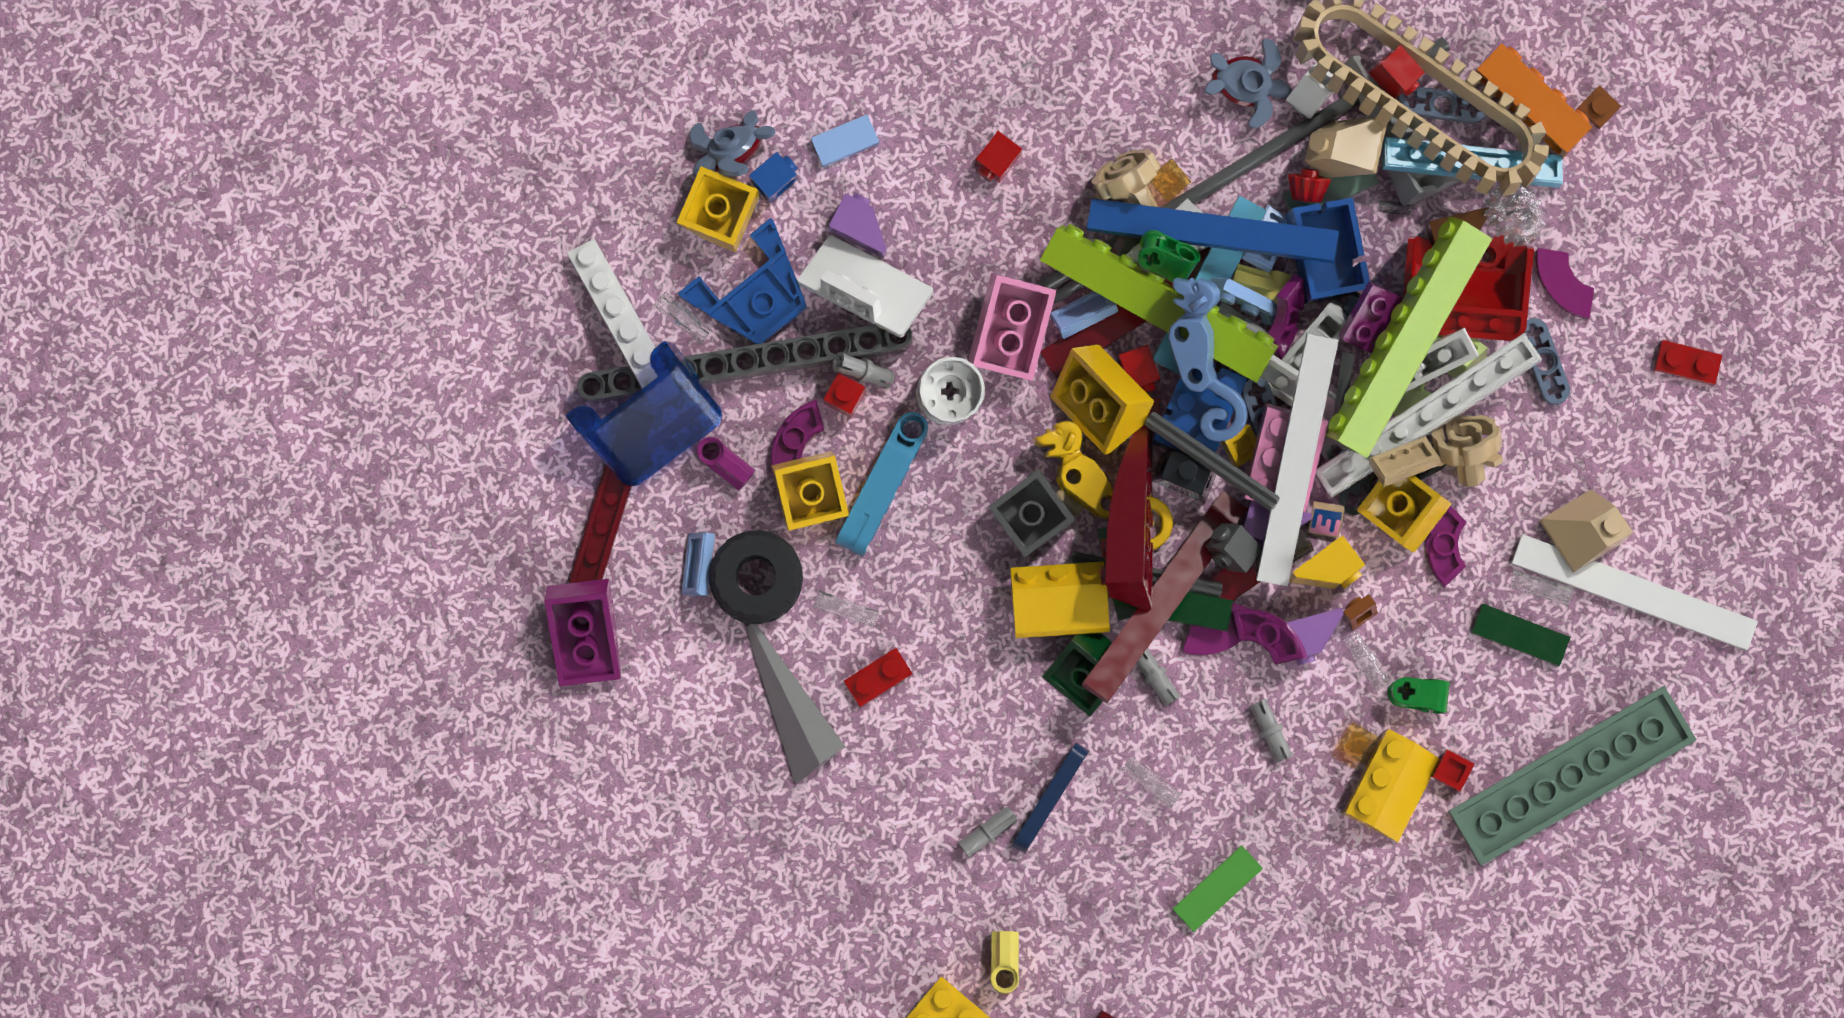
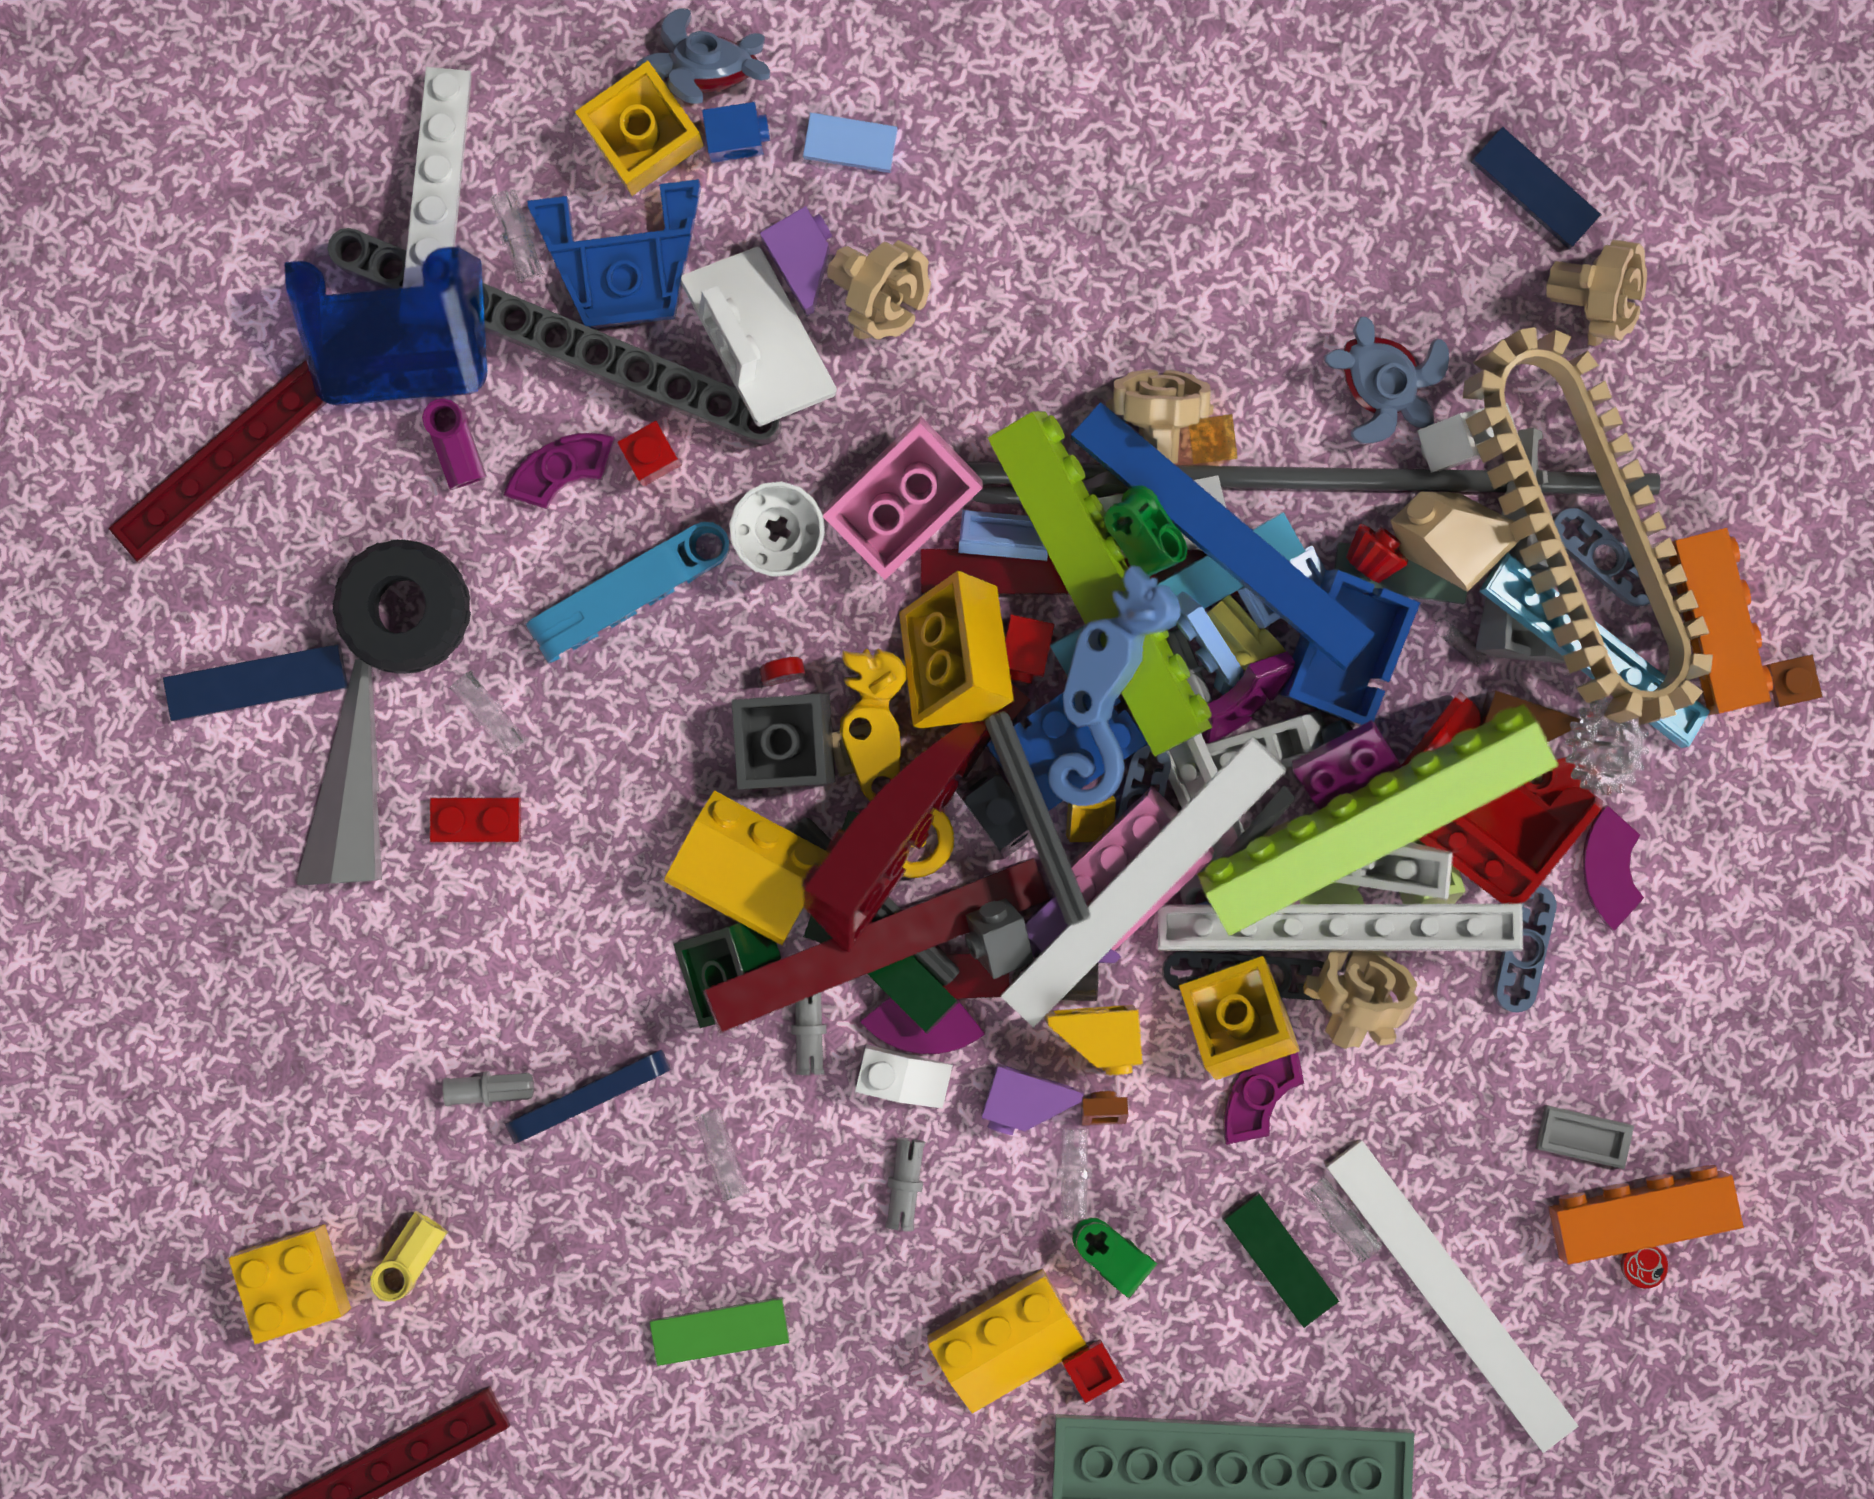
camera: 25 degrees right, 5 degrees up
(583, 632) = (150, 540): magenta slope -> none
(695, 679) = (255, 682): none -> dark blue tile
(698, 564) = (343, 545): light blue tile -> none
(810, 490) = (531, 543): yellow brick -> none
(863, 370) = (690, 437): light grey pin -> none
(918, 212) = (879, 285): none -> tan piece
(997, 157) = (1020, 280): red brick -> none
(1004, 474) = (782, 671): none -> red tile
(1228, 667) = (903, 1077): none -> white slope
(1269, 632) = (977, 1069): magenta tile -> none
(1326, 519) = (1136, 972): tile -> none
(1357, 743) = (1000, 1264): clear yellow plate -> none
(1397, 73) = (1575, 484): red brick -> none
(1404, 461) = (1273, 966): tan plate -> none
(1586, 529) = (1442, 1184): tan slope -> none
(1651, 449) = (1584, 1136): none -> light grey tile
(1688, 362) = (1698, 1060): red plate -> none
(1715, 473) = (1646, 1215): none -> orange brick
(1734, 502) = (1645, 1267): none -> red tile

